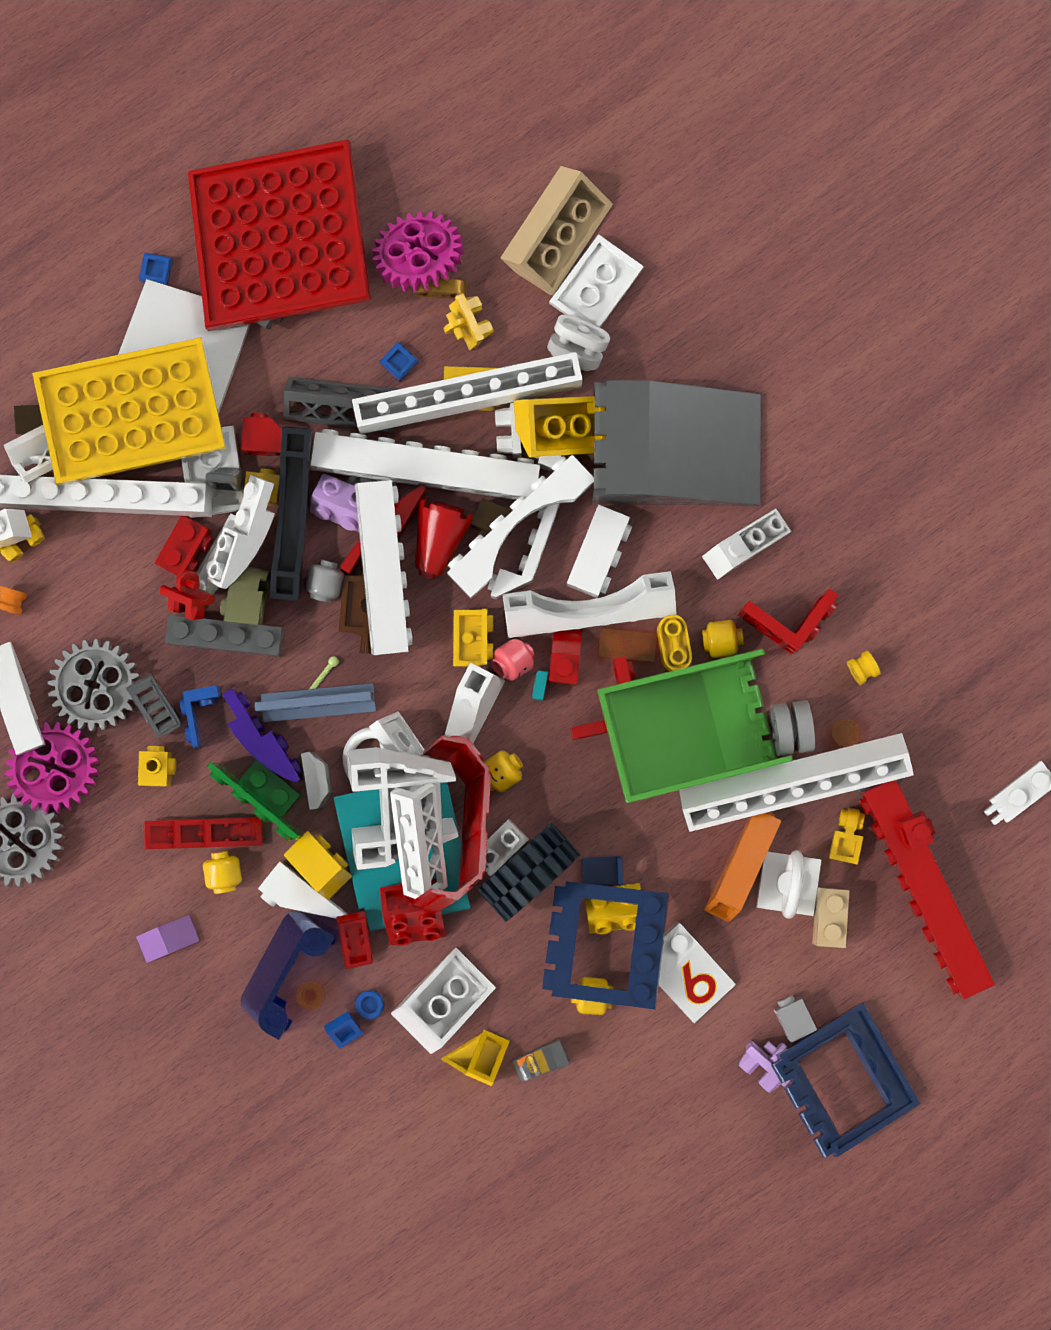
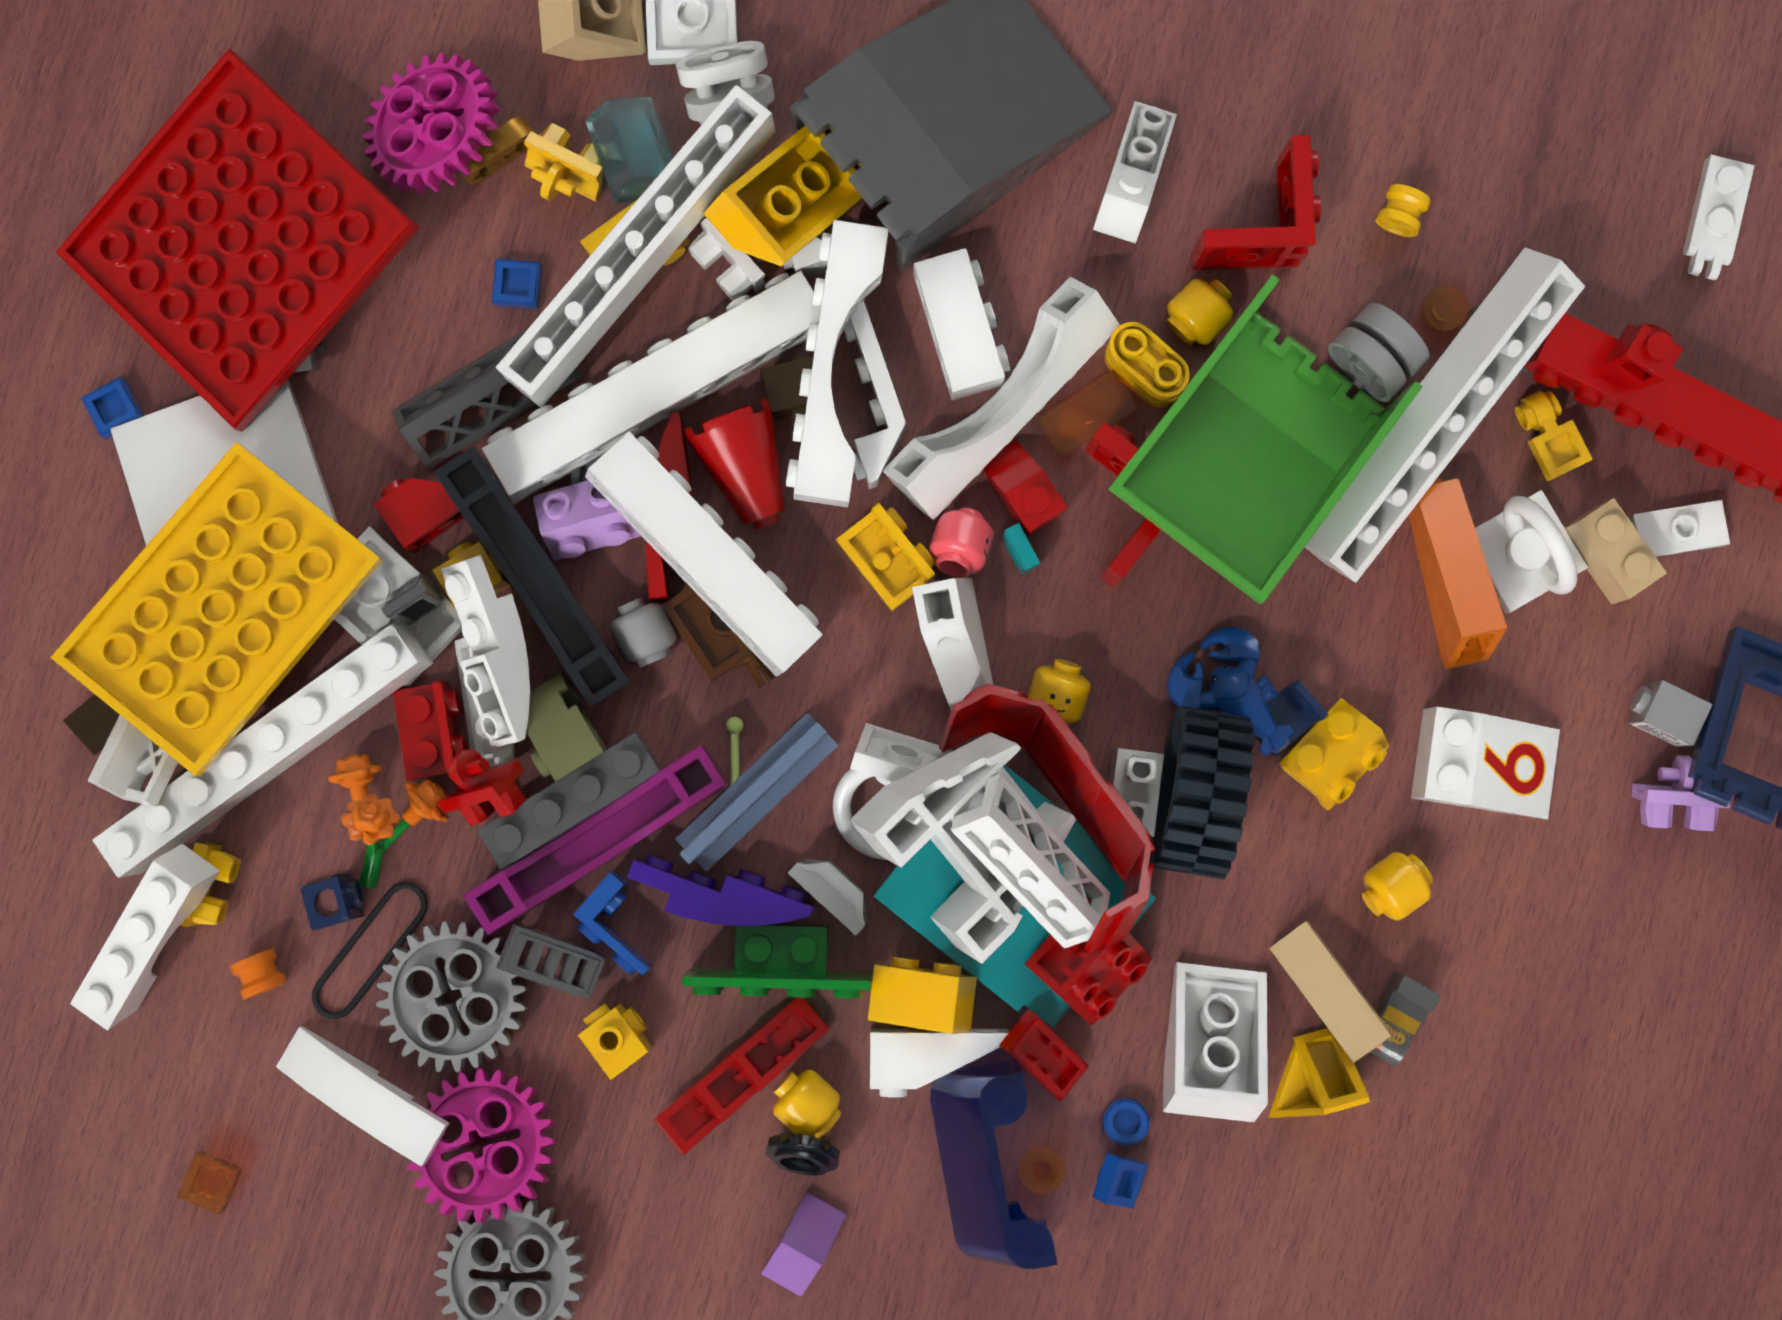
camera: 40 degrees left, 0 degrees up
(26, 642) = (315, 992): none -> black piece
(83, 595) = (348, 897): none -> dark blue bracket
(123, 569) = (374, 818): none -> orange plant
(201, 894) = (802, 1154): none -> black gear
(222, 665) = (596, 840): none -> magenta arch
(506, 338) = (629, 145): none -> clear light blue brick
(518, 1020) = (1331, 991): none -> tan tile
(589, 835) = (1231, 687): none -> blue animal
(646, 945) = (1425, 772): dark blue hinge -> none
(875, 933) = (1683, 528): none -> white plate

